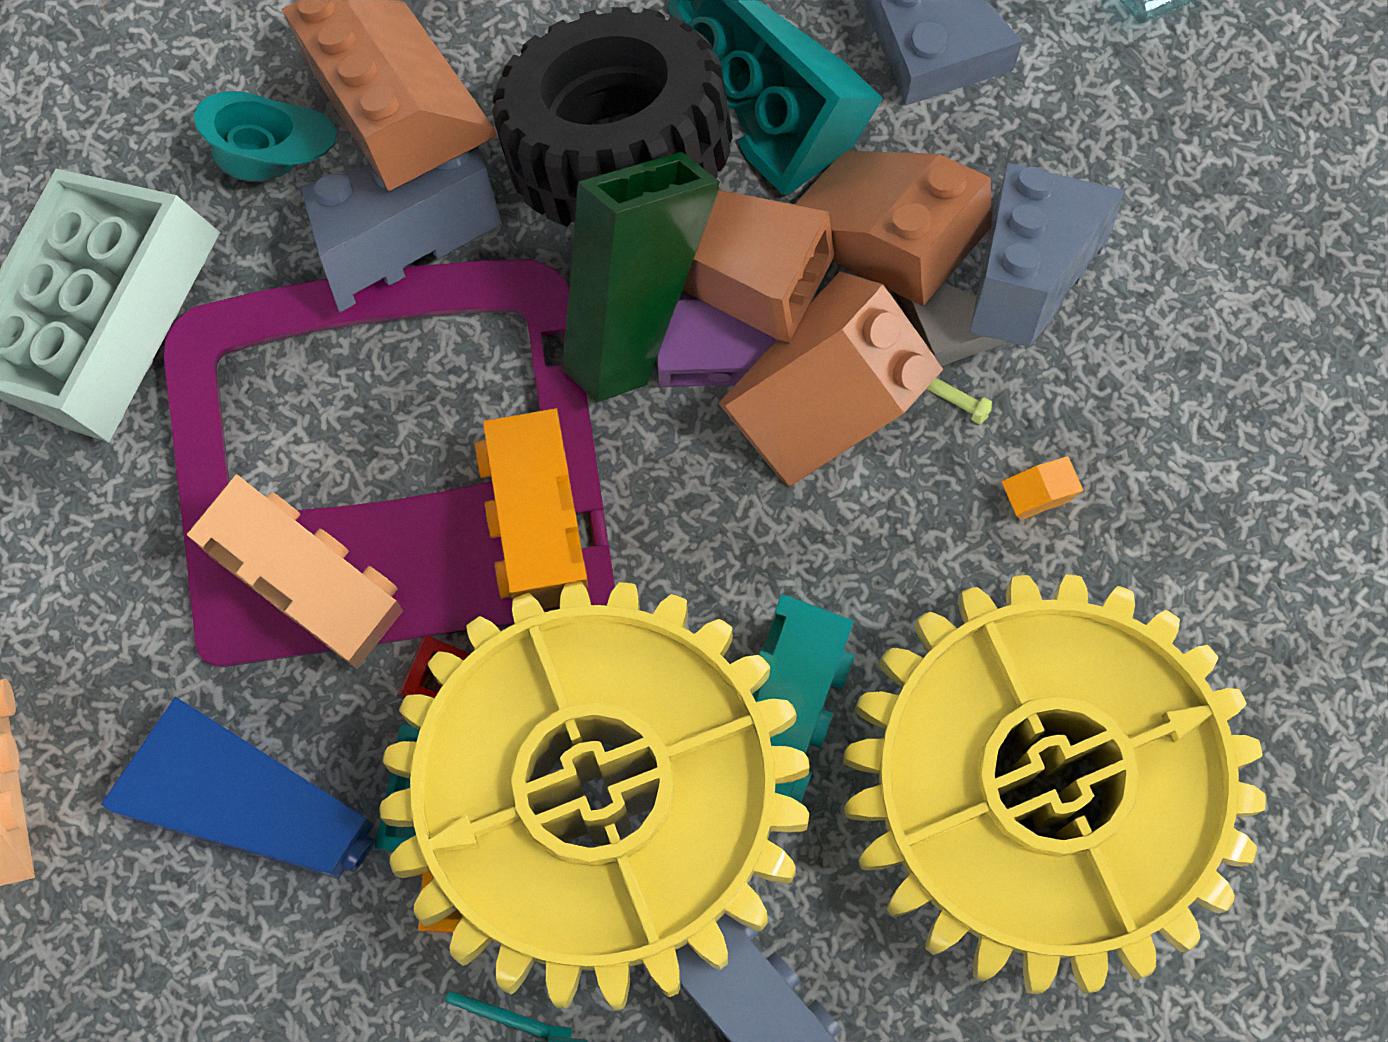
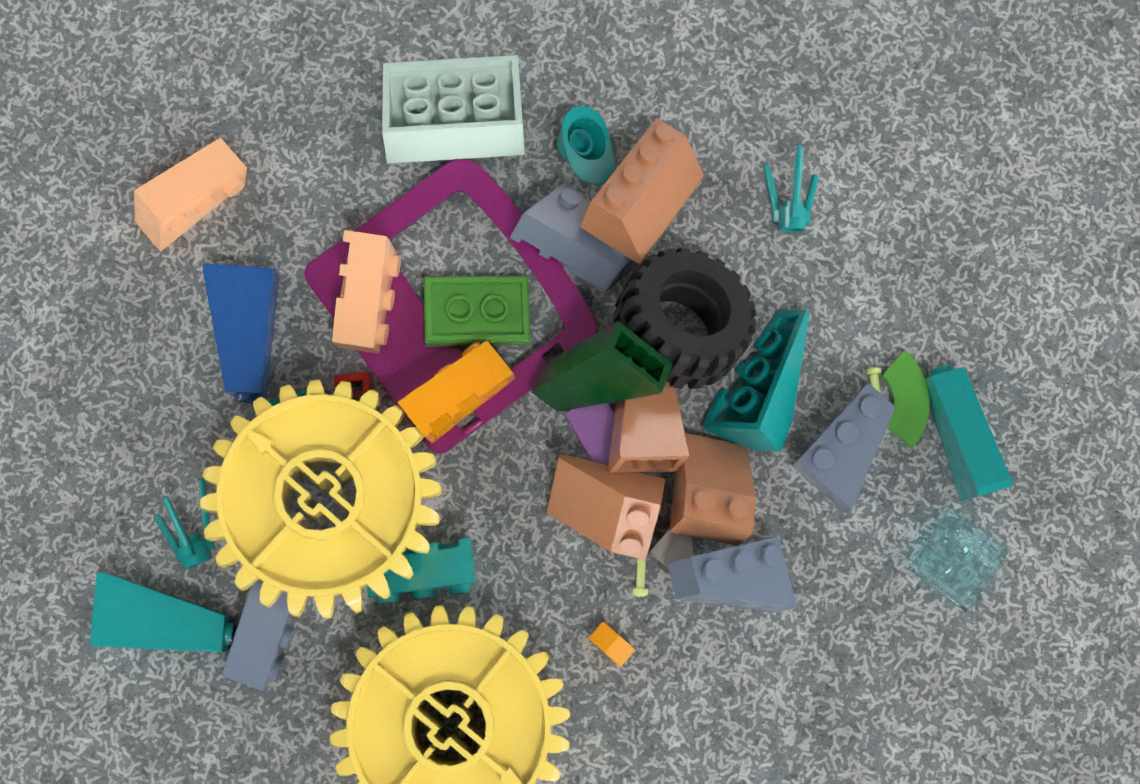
camera: 60 degrees right, 5 degrees up
(421, 427) = (476, 310): none -> bright green tile

